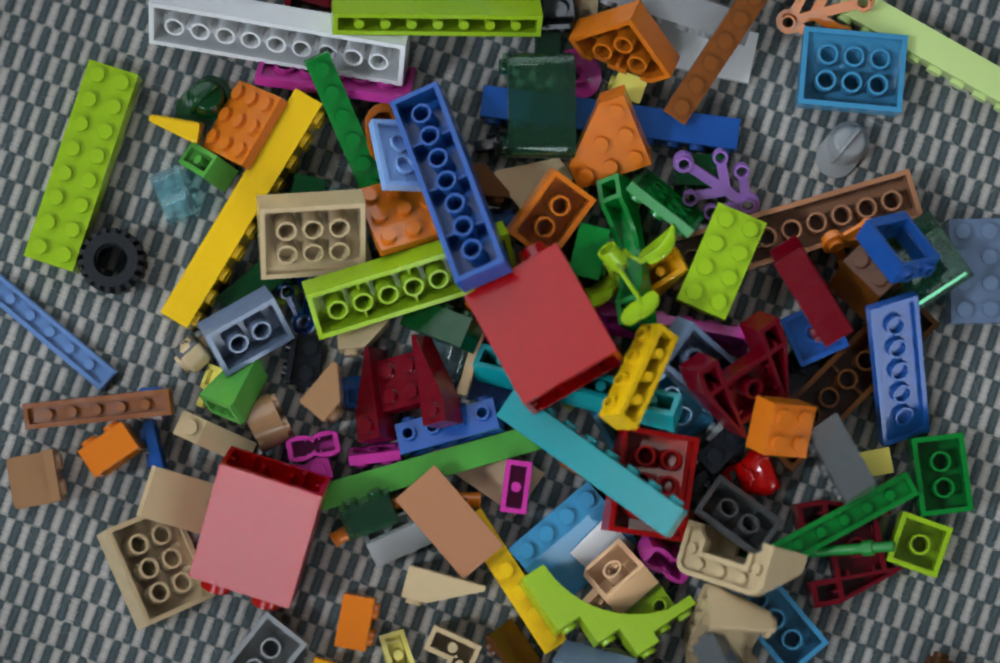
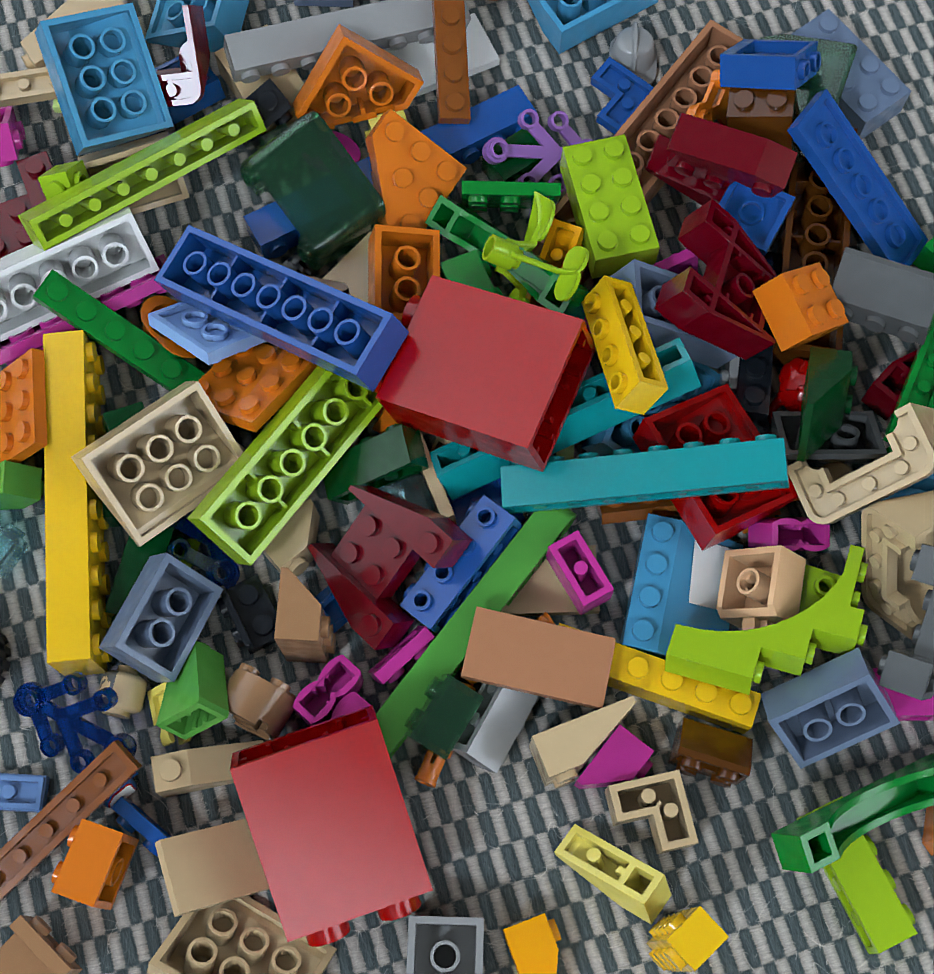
camera: 40 degrees left, 15 degrees down
(152, 350) = (68, 718): none -> clear blue plant
(356, 621) = (519, 849): orange brick -> none
(453, 613) = (617, 761): none -> dark pink slope
(747, 495) = (824, 397): none -> dark green slope
(815, 176) = (625, 92): none -> blue plate

